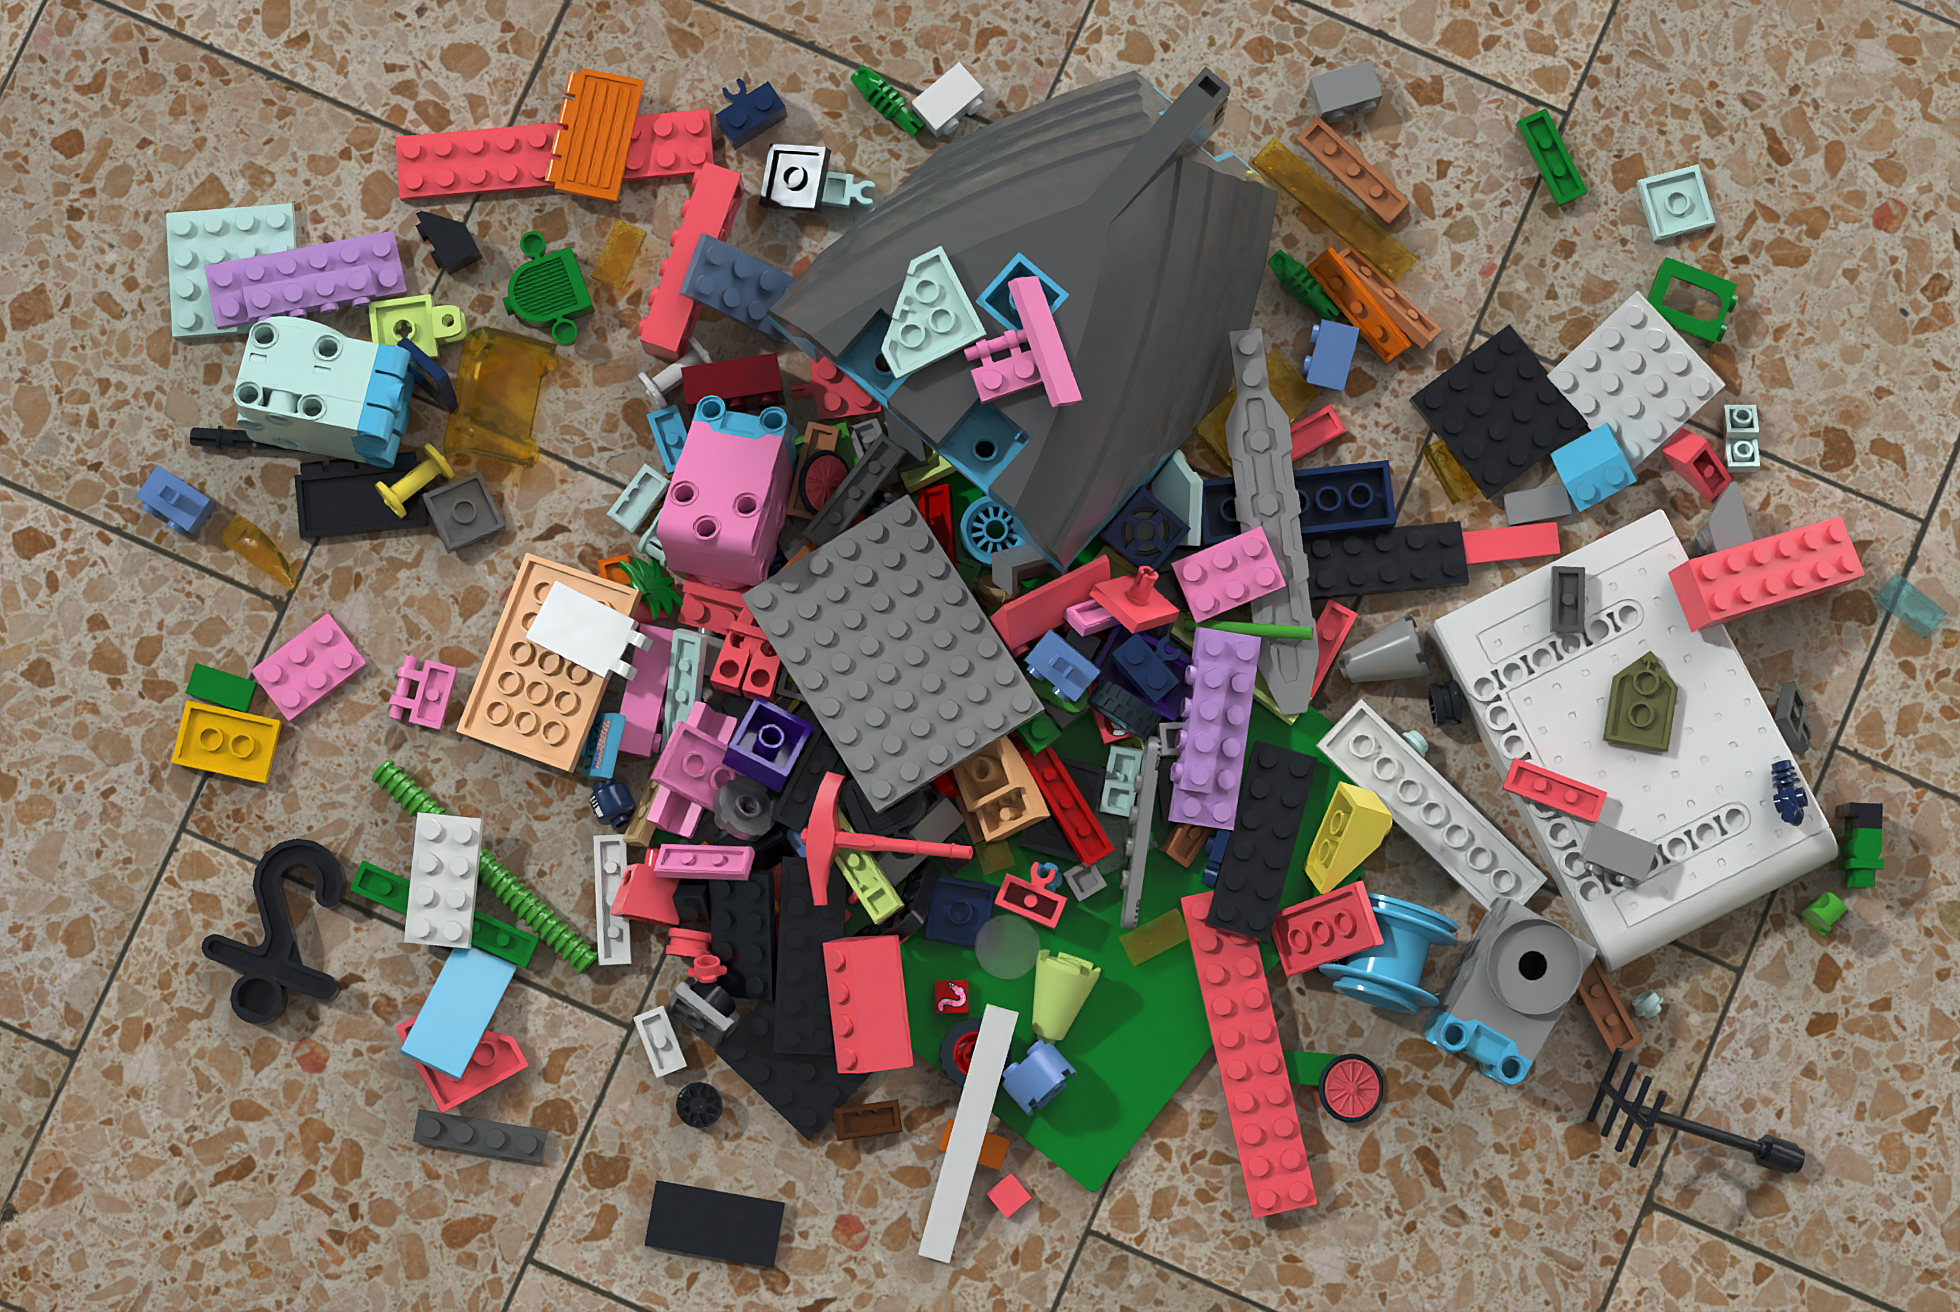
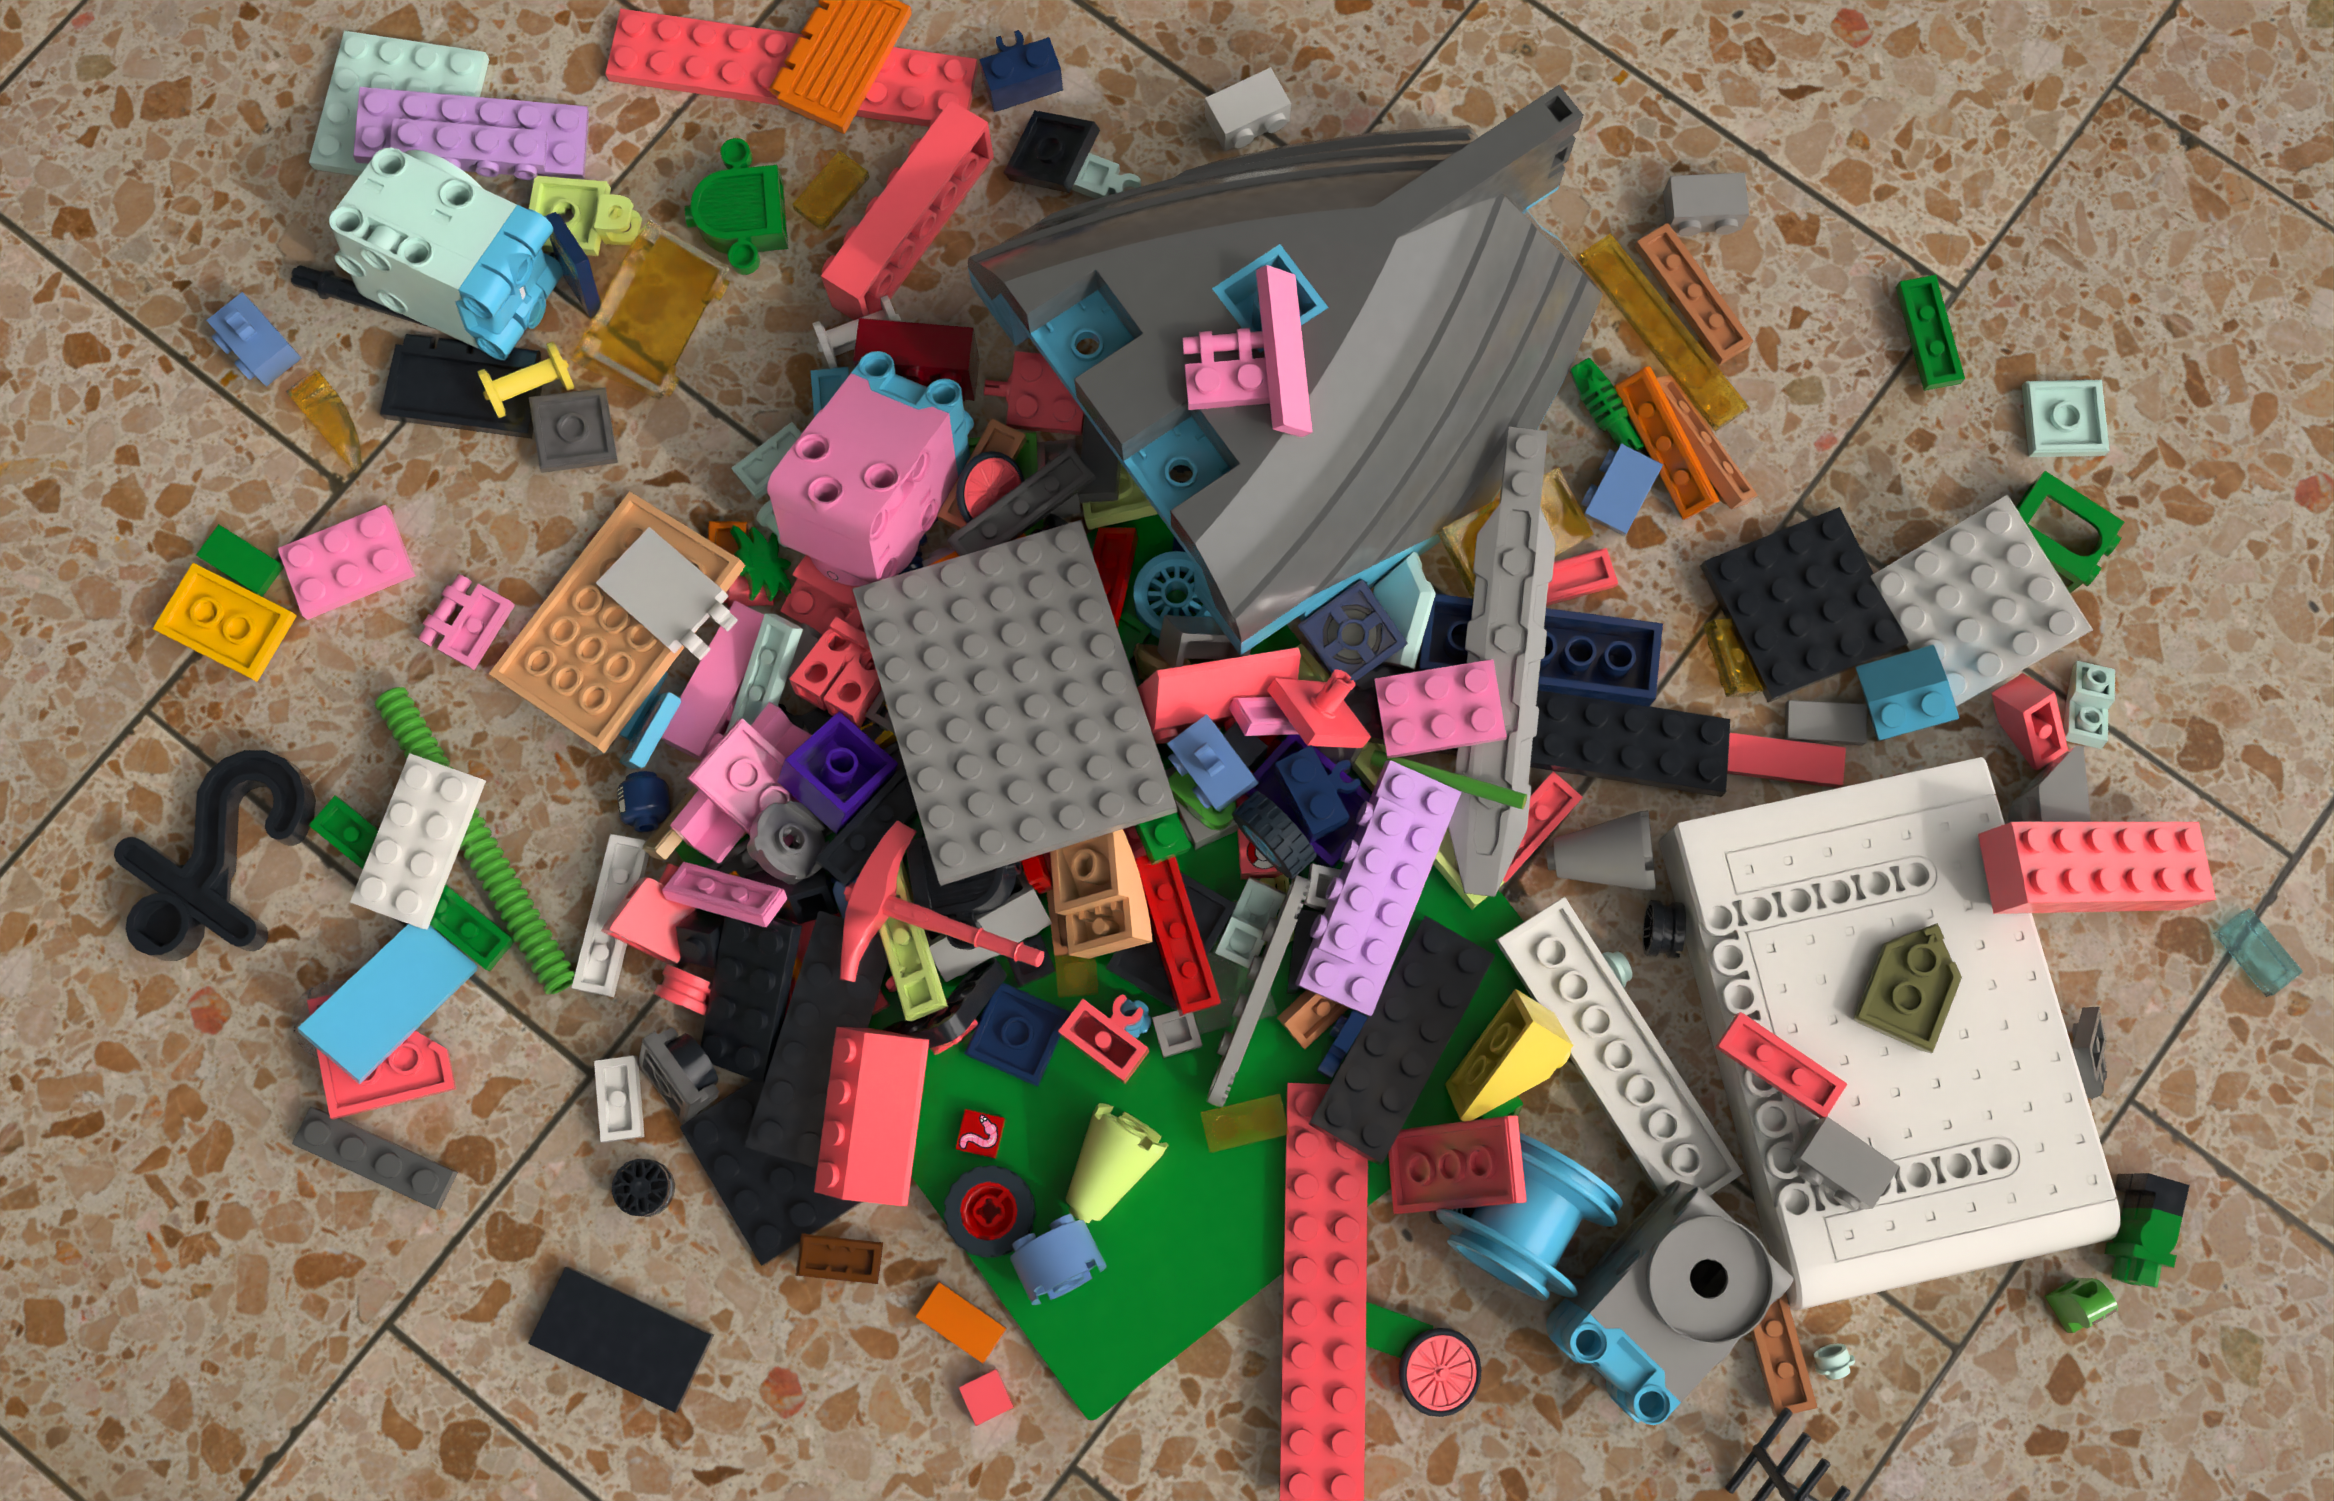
camera: 15 degrees right, 5 degrees down
(451, 241) = (647, 132): black slope -> none
(707, 969) = (693, 1024): coral plate -> none
(735, 285) = (938, 240): sand blue plate -> none
(886, 100) = (1178, 94): green hinge -> none
(929, 317) = (1151, 291): light aqua plate -> none
(968, 1133) = (953, 1307): white tile -> none
(1007, 946) = (1062, 1089): clear tile -> none
(1567, 599) = (1847, 836): dark grey plate -> none
(1790, 798) = (2075, 1149): dark blue piece -> none

